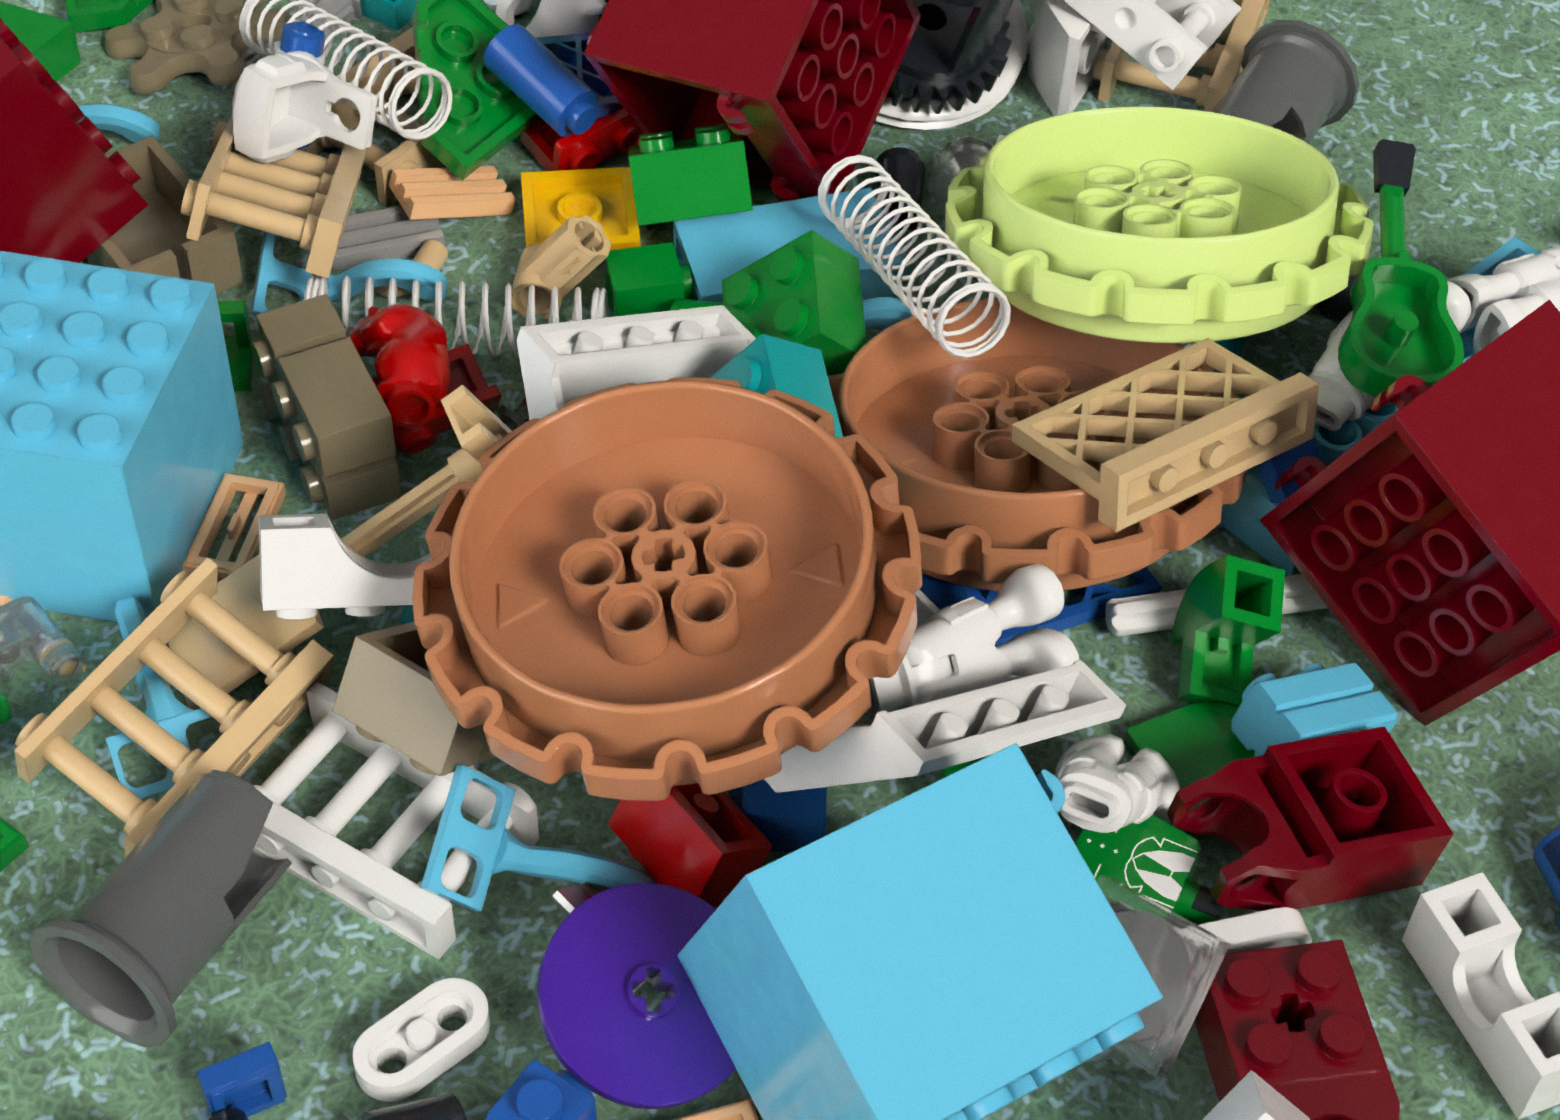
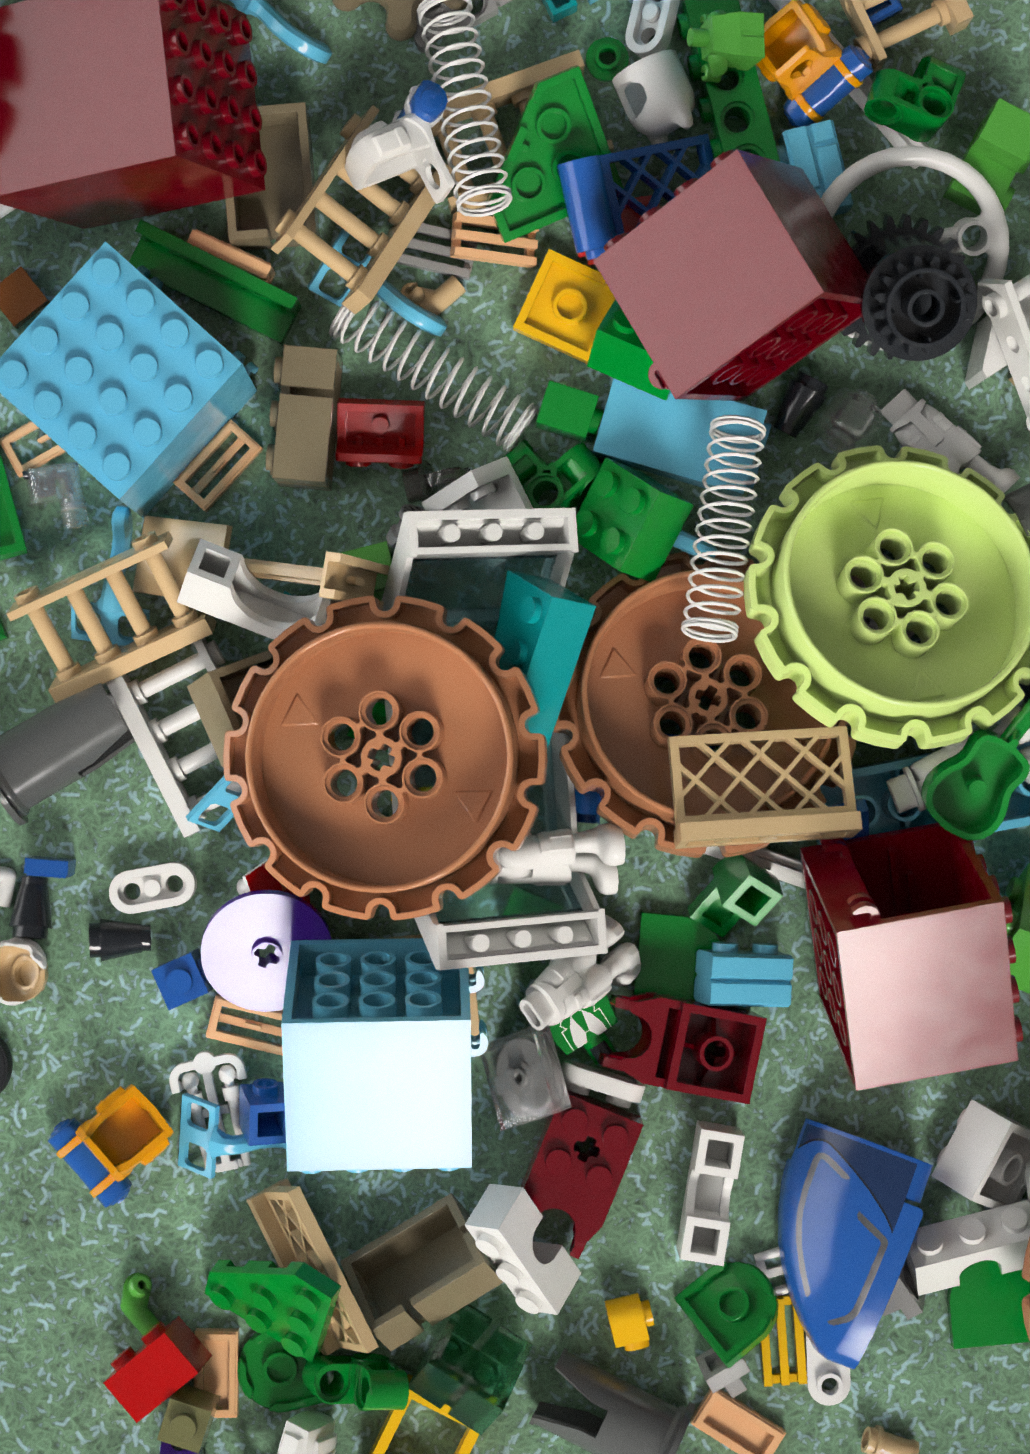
camera: 35 degrees right, 40 degrees up
(408, 362) = (368, 430): red animal -> none
(559, 261) = (519, 365): tan piece -> none

